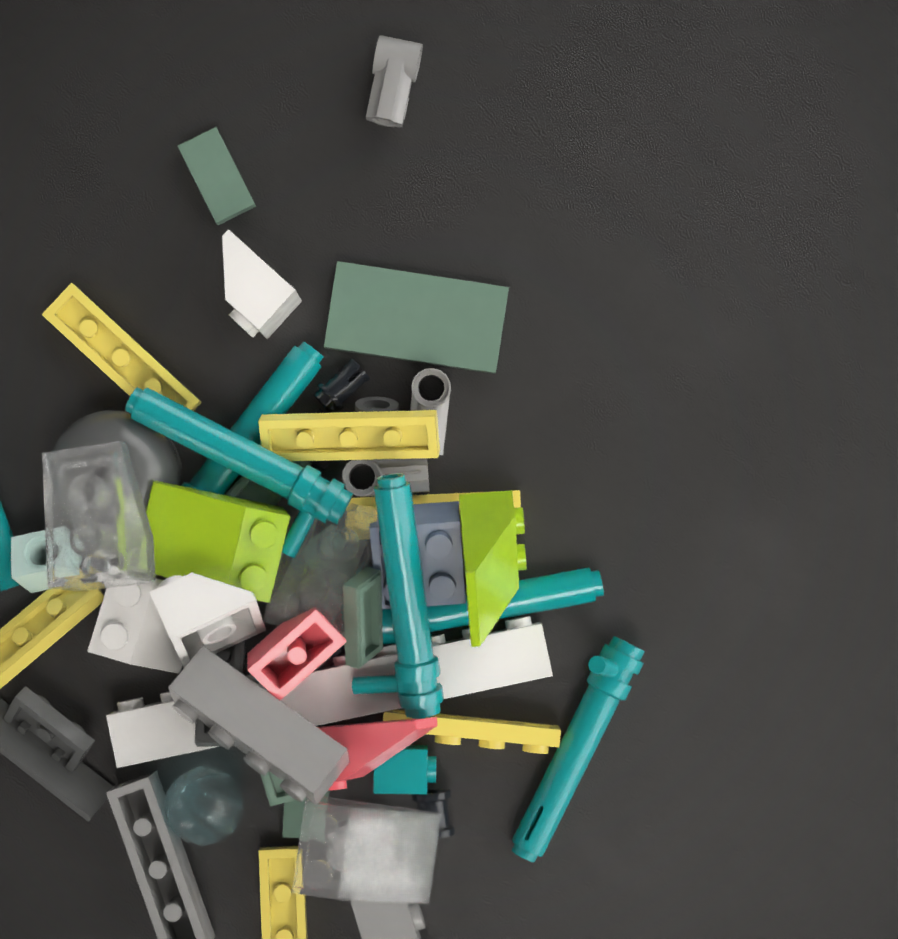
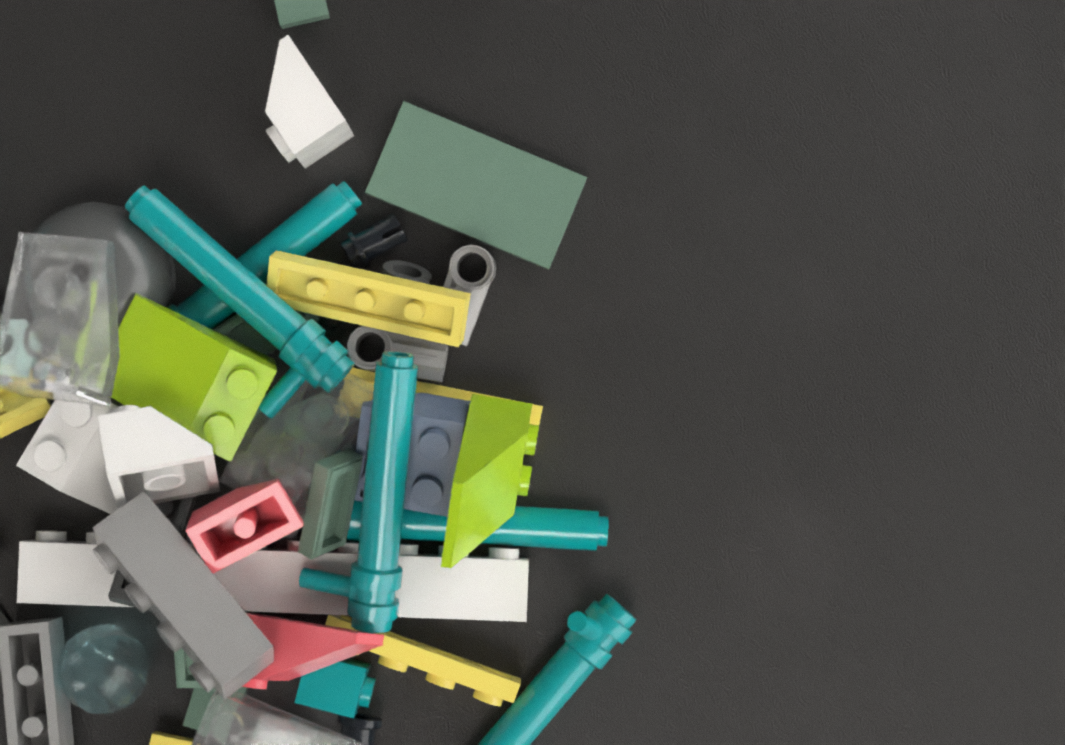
camera: 15 degrees right, 0 degrees up
(113, 348) = (131, 136): light yellow plate -> none

